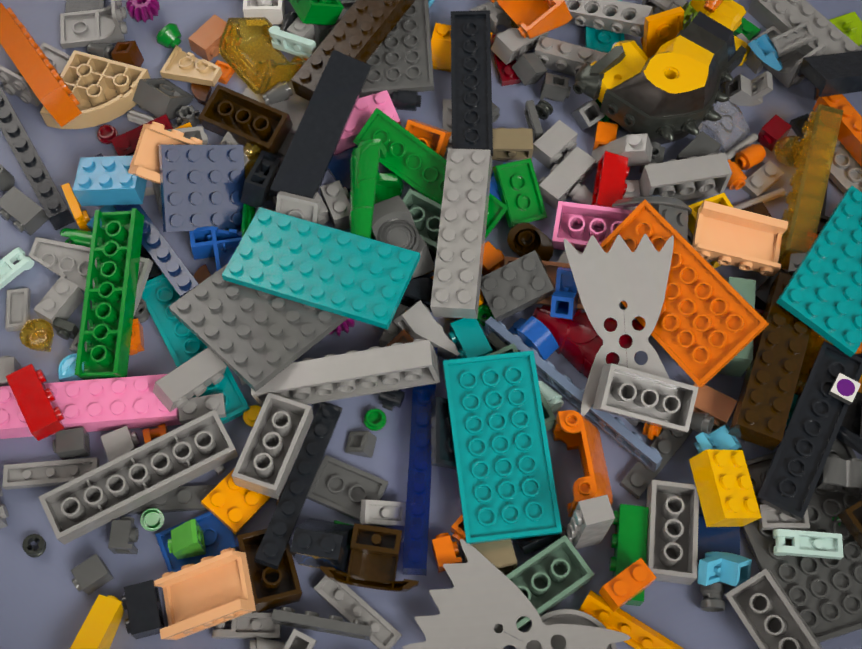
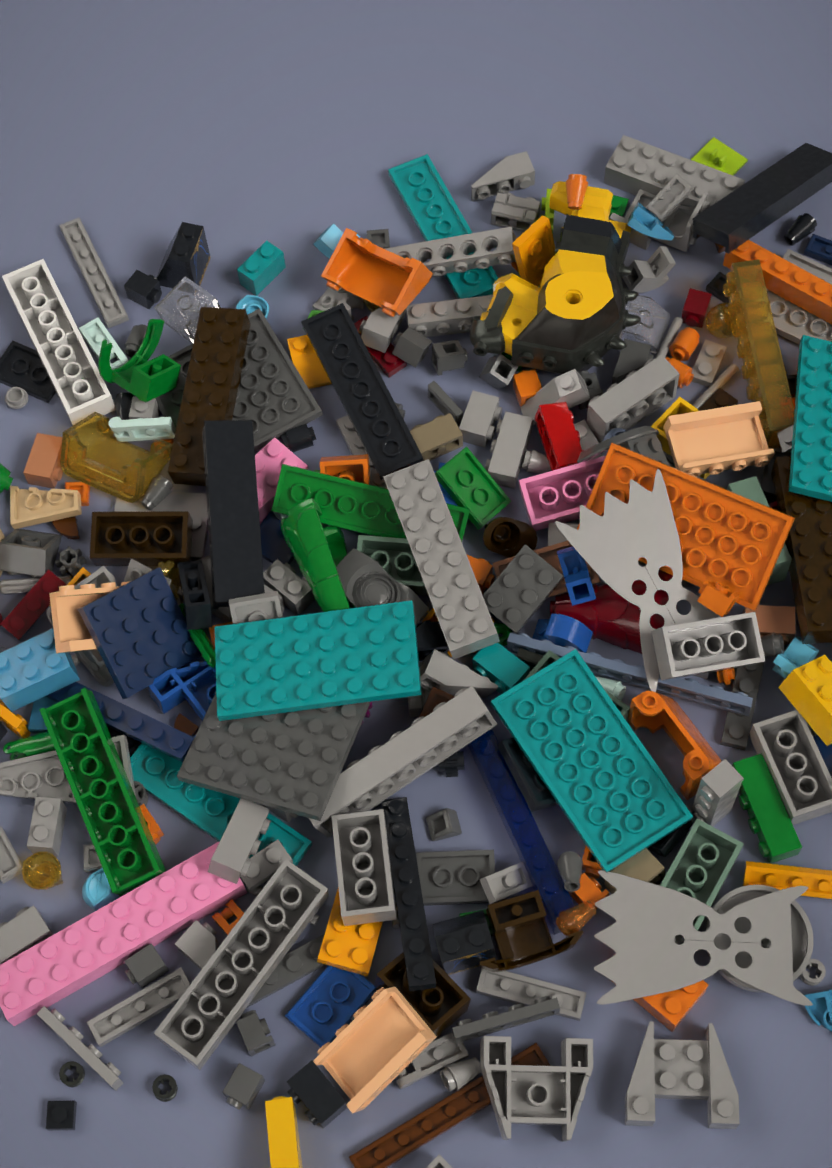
camera: 20 degrees left, 0 degrees up
(36, 401) = (92, 939): red brick -> none
(65, 329) = (69, 851): pearl dark grey plate -> none
(152, 519) = (273, 1002): plate -> none
(187, 540) = (325, 1004): bright green slope -> none
(251, 415) = (320, 848): yellow plate -> none
(375, 419) = (445, 793): green plate -> none
(421, 568) = (575, 918): none -> clear orange cone
(439, 526) = (570, 870): none -> dark grey cone
(544, 109) = (449, 384): pearl dark grey bush -> none
(627, 584) = (780, 838): orange brick -> none
(673, 362) = (717, 597): none -> orange brick

